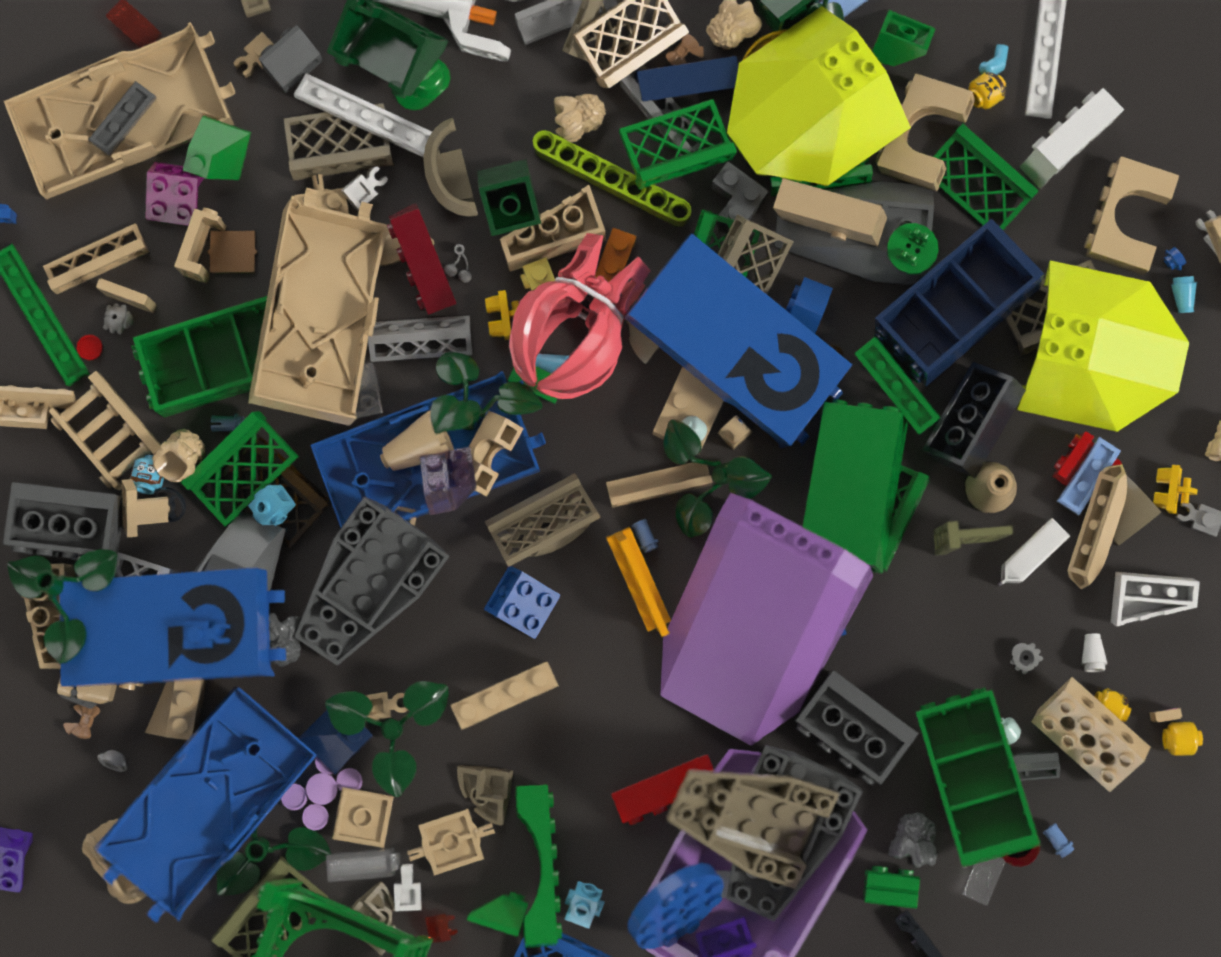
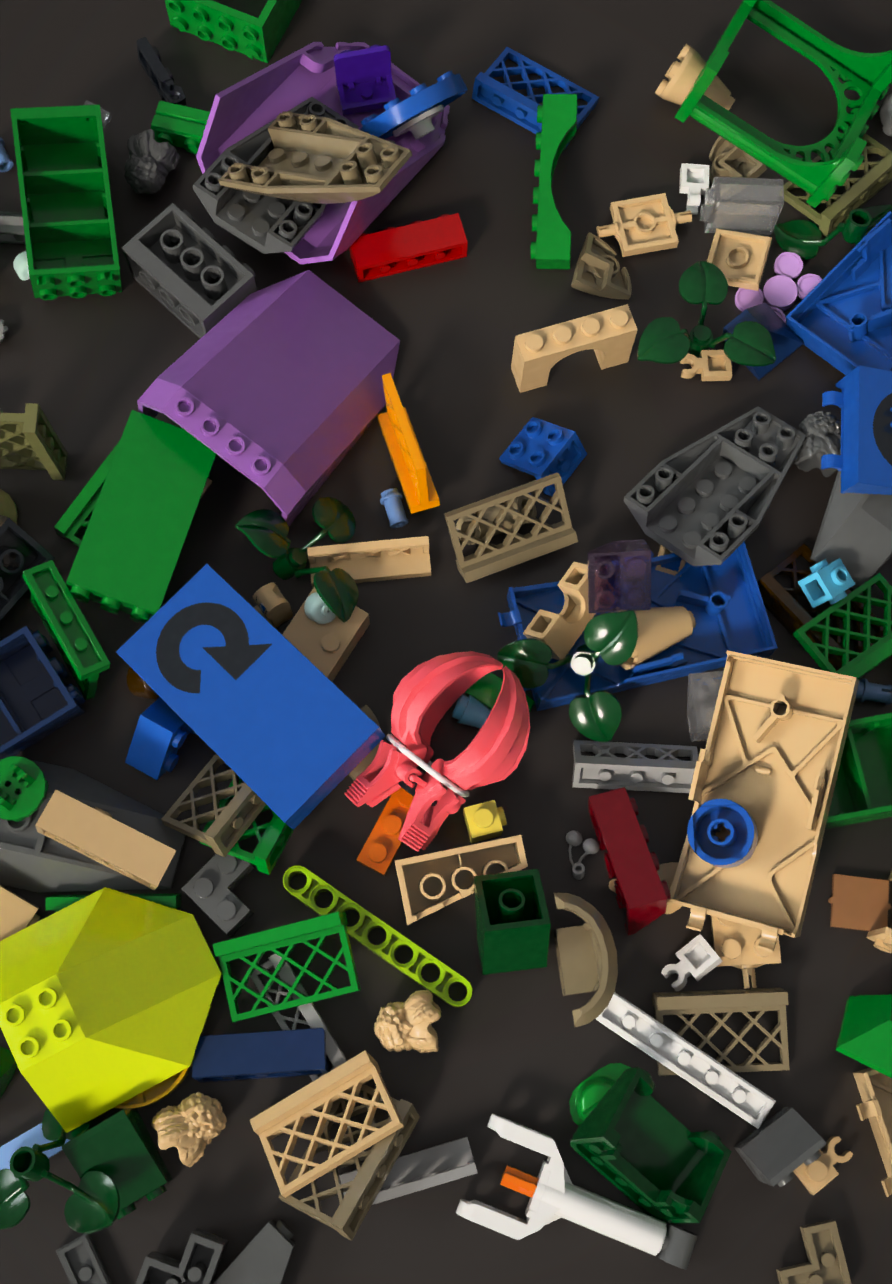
camera: 175 degrees left, 10 degrees down
(340, 286) = (709, 819): none -> blue brick
(438, 927) = (663, 145): clear red tile -> none
(500, 304) = (534, 794): yellow hips -> none
(502, 913) = (600, 143): green slope -> none
(583, 904) = (509, 146): medium azure brick -> none
(688, 44) = (252, 1106): medium nougat piece -> none

